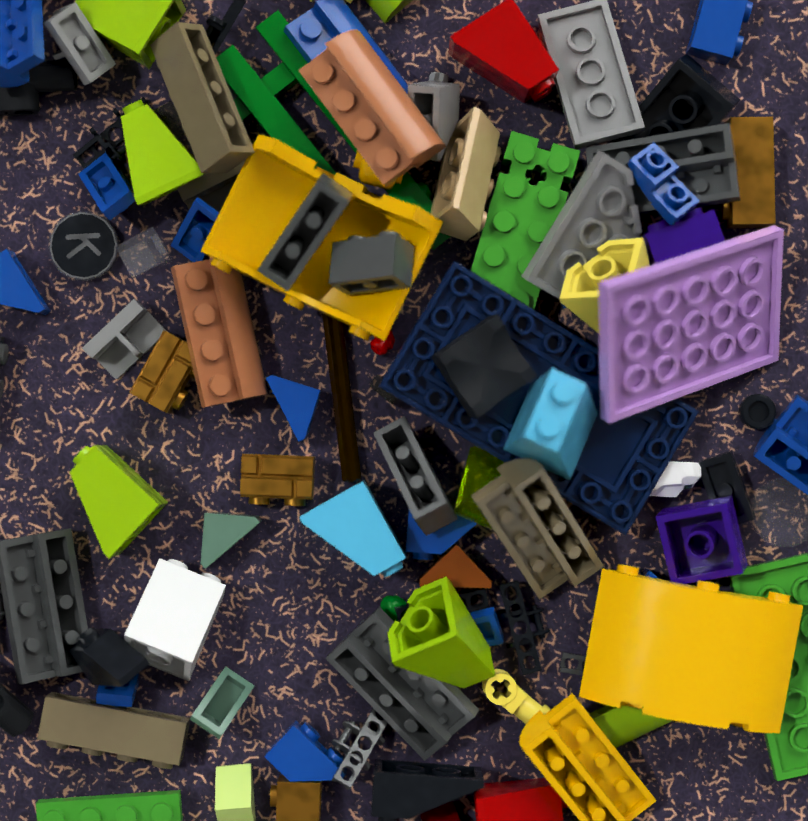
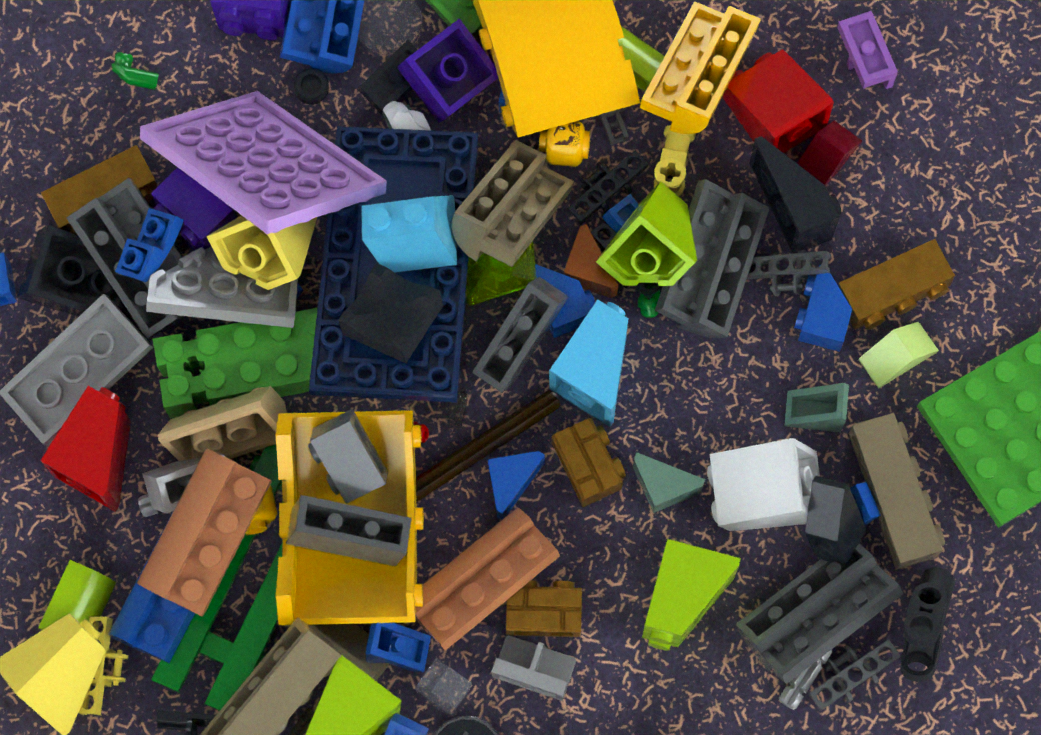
camera: 110 degrees left, 15 degrees down
(577, 610) = (565, 144): none -> yellow head

